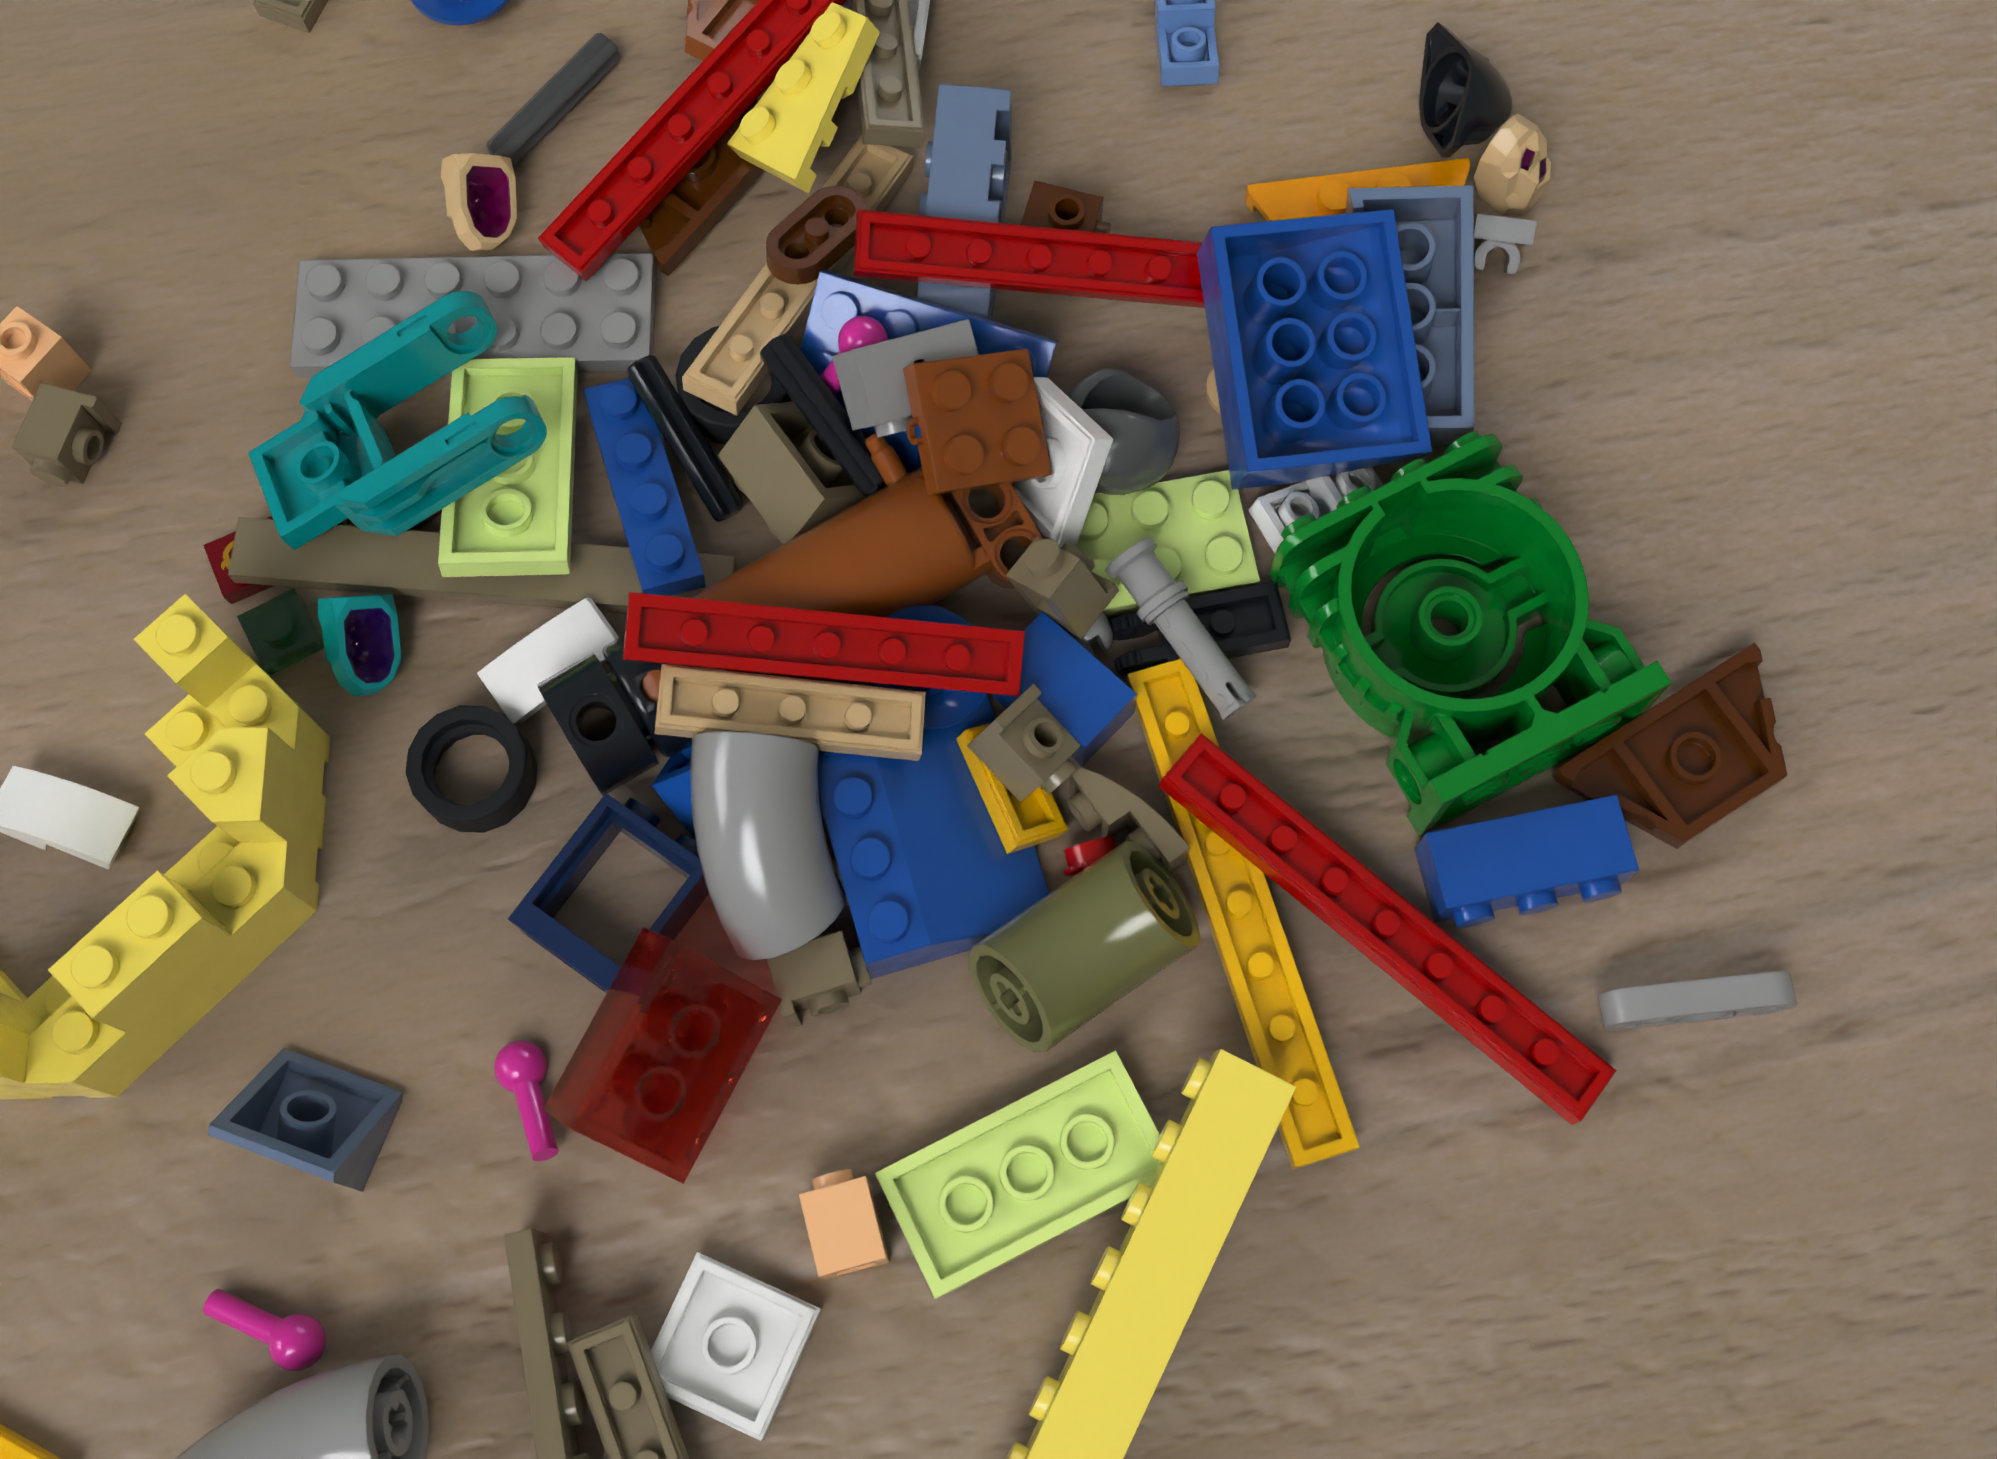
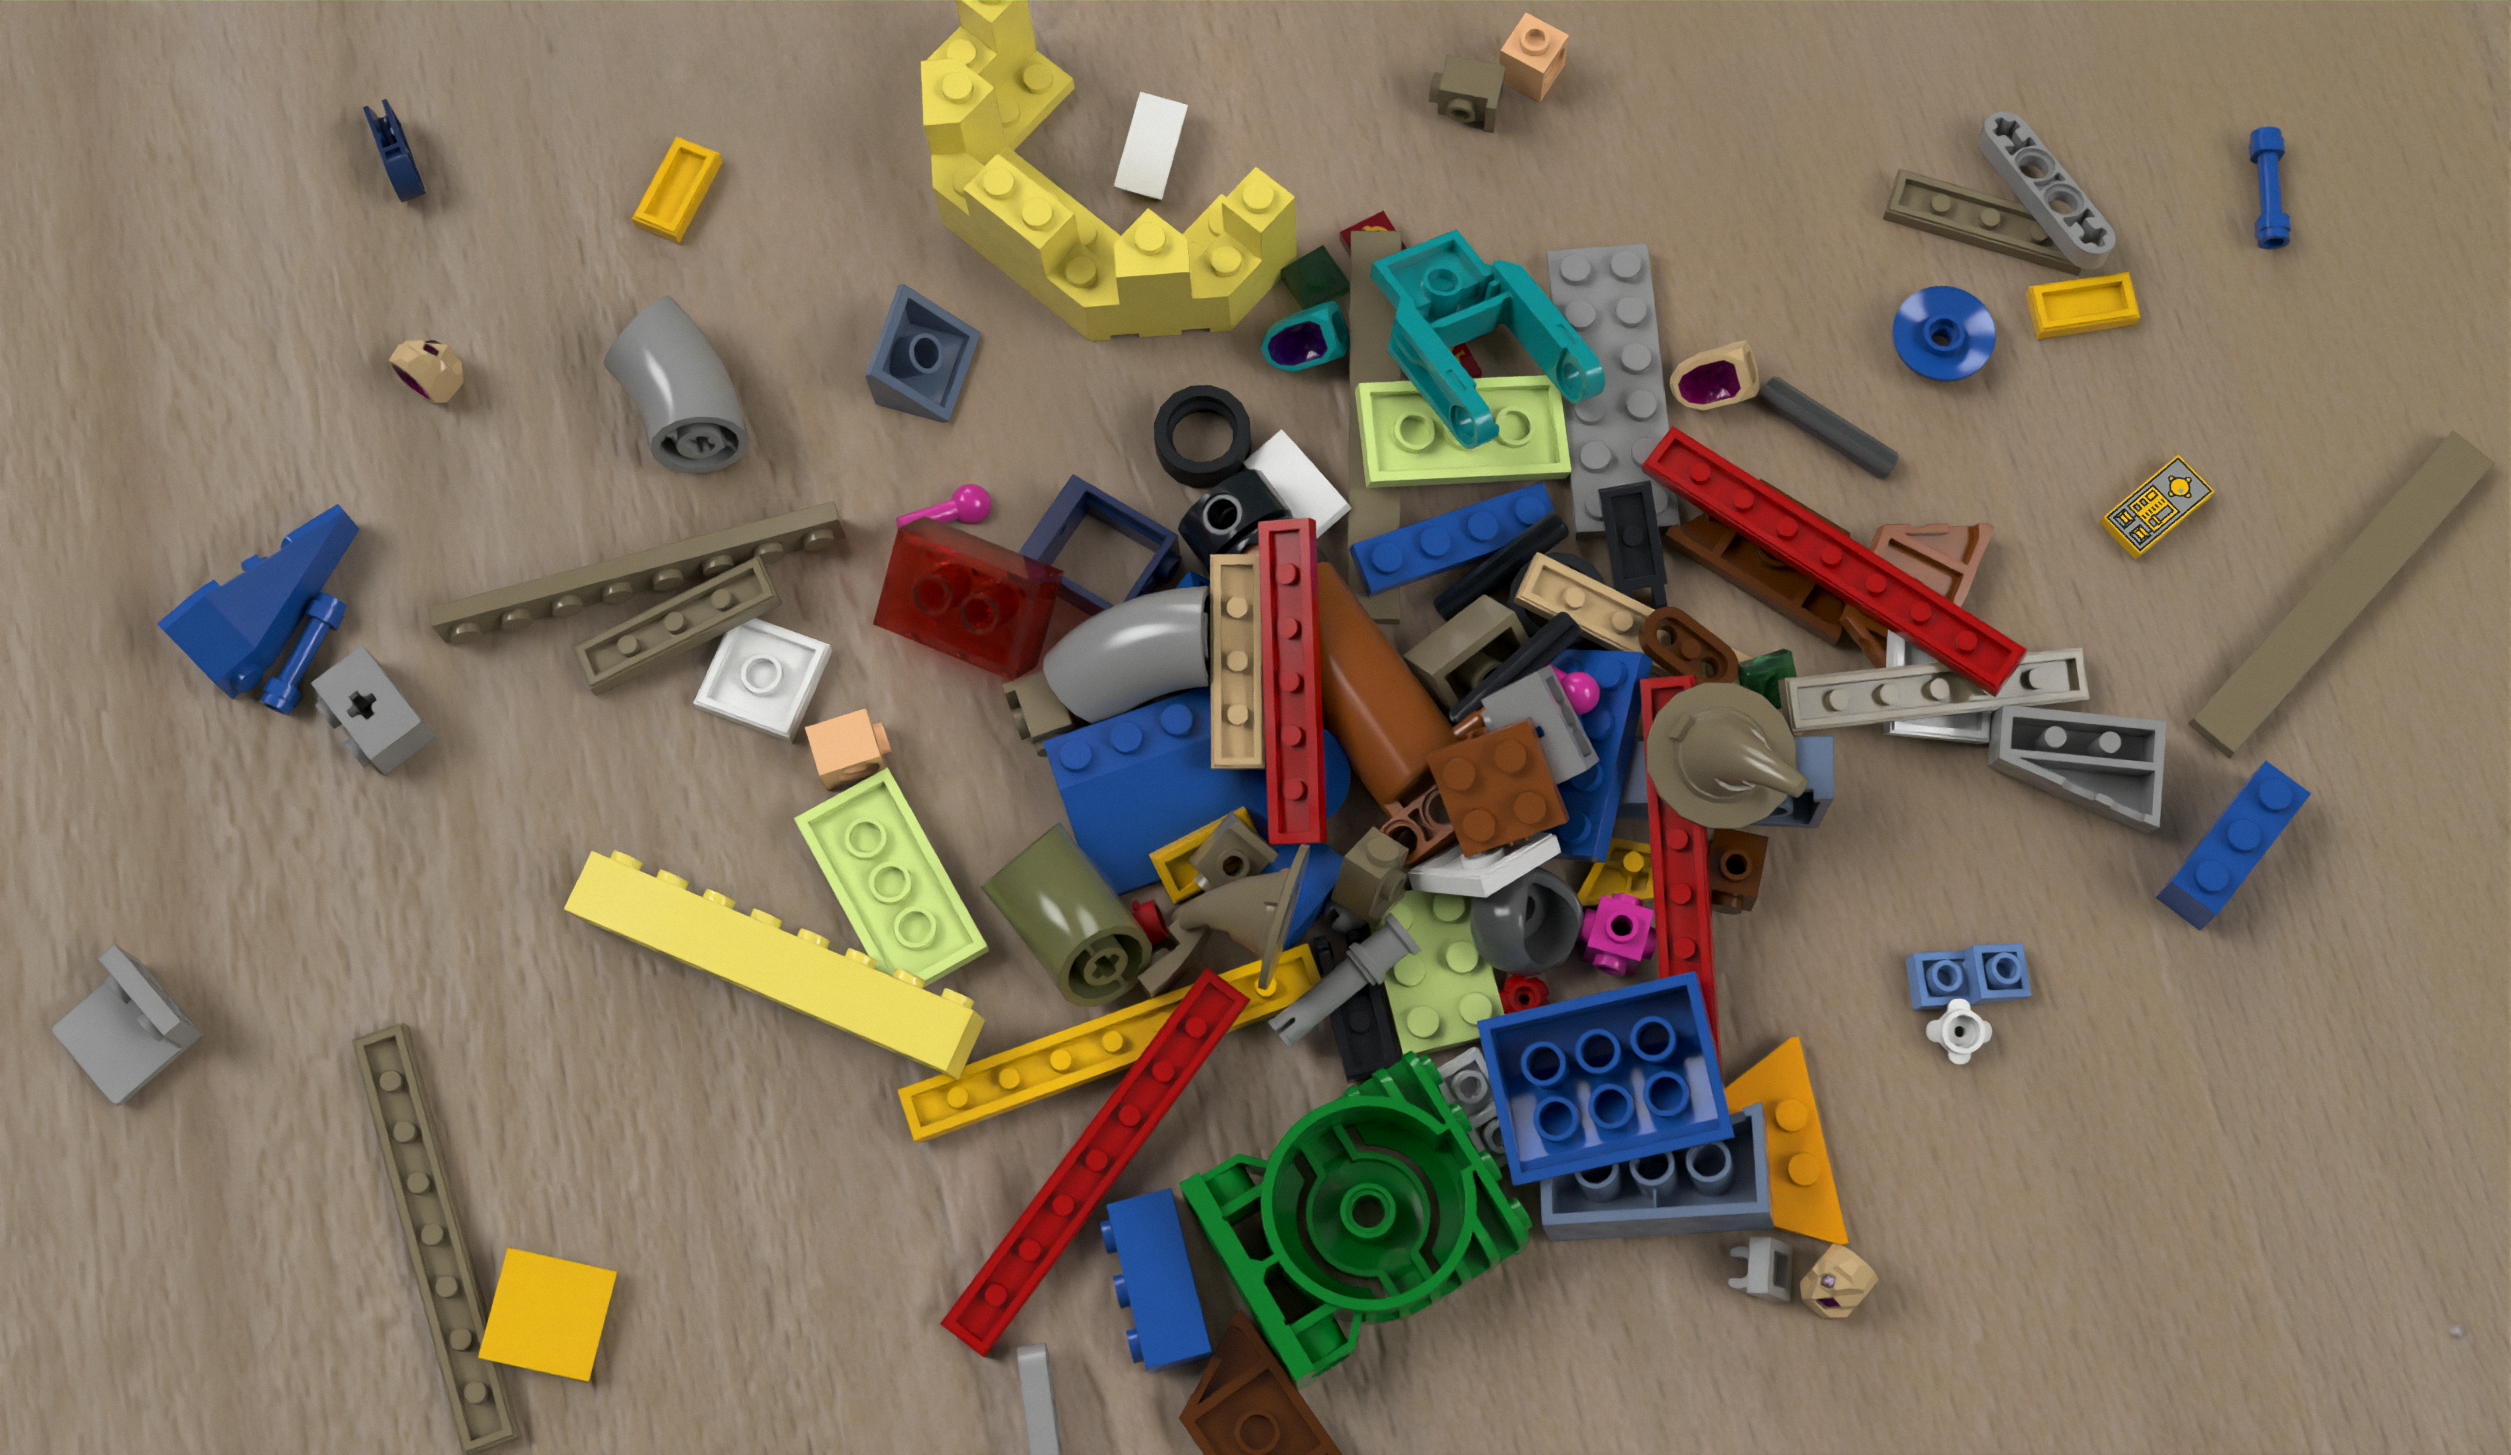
camera: 90 degrees right, 0 degrees up
(292, 1341) = (763, 370): dark pink bar -> none
(672, 290) = (1633, 540): none -> black hinge
(801, 101) = (1817, 624): light yellow wing -> none
(857, 166) = (1763, 673): none -> clear green tile
(959, 187) = (1722, 756): none -> dark tan piece
(1071, 329) = (1624, 871): none -> yellow piece
(1120, 686) = (1253, 911): none -> dark tan piece
(1134, 339) = (1612, 952): none -> dark pink brick
(1207, 439) = (1521, 985): none -> red plate
(1245, 37) = (1975, 1031): none -> white plate
(1459, 93) = (1912, 1237): black hat -> none

